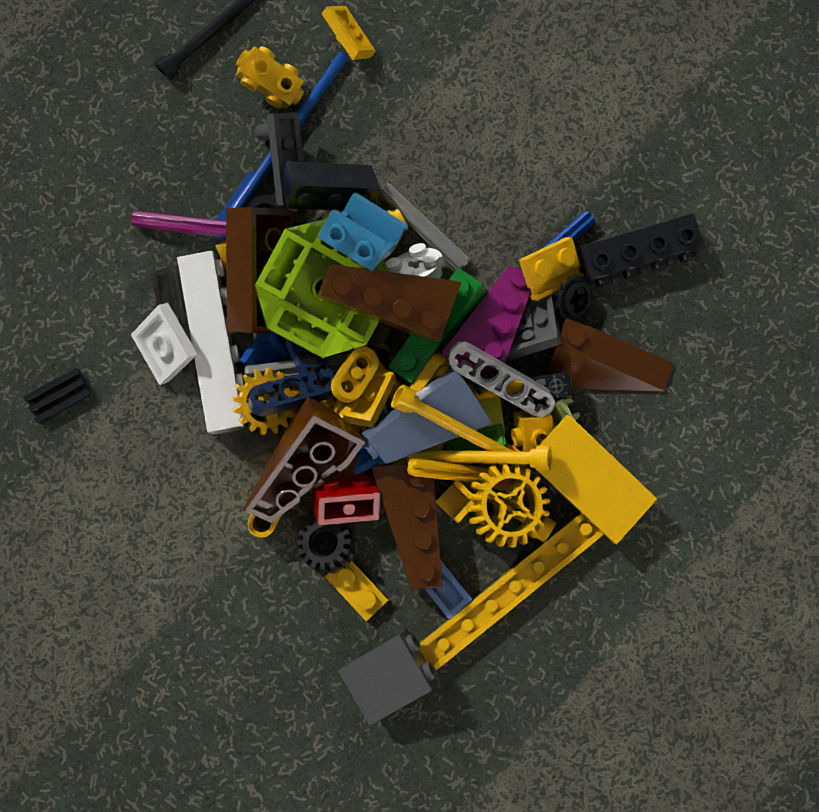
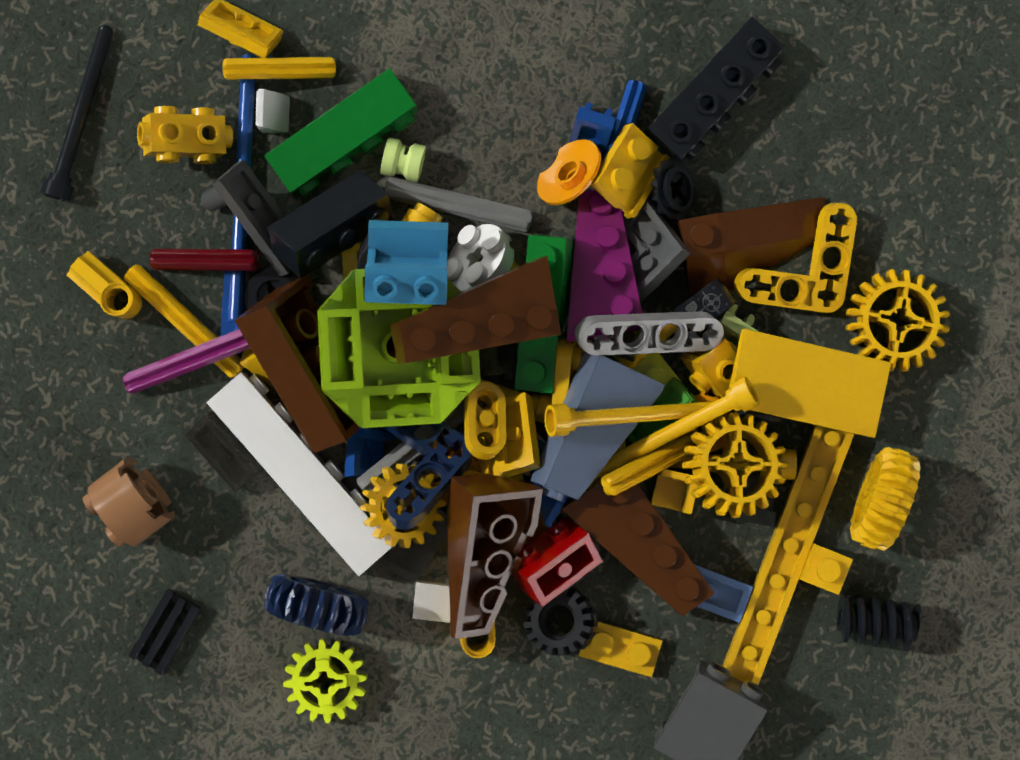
camera: 30 degrees left, 5 degrees up
(85, 294) = (129, 503): none -> medium nougat brick
(149, 481) = (326, 698): none -> neon yellow gear
(158, 146) = (104, 285): none -> yellow piece
(163, 343) = (250, 507): white plate -> none
(167, 434) = (316, 605): none -> dark blue gear
(195, 192) = (177, 315): none -> yellow axle
(234, 165) = (205, 259): none -> dark red axle
(245, 479) = (431, 601): none -> white slope
(336, 97) = (272, 111): none -> white slope
(358, 71) = (279, 68): none -> yellow axle
(374, 137) = (342, 133): none -> green brick
(402, 175) = (403, 160): none -> yellowish green wheel
(510, 248) = (570, 173): none -> light orange dish
(530, 616) = (825, 569): none -> yellow brick
(542, 227) = (593, 126): none -> blue tile
(545, 676) = (877, 621): none -> black piece
(599, 591) = (885, 498): none -> yellow gear
(631, 416) = (809, 284): none -> yellow beam
(694, 455) = (901, 302): none -> yellow gear

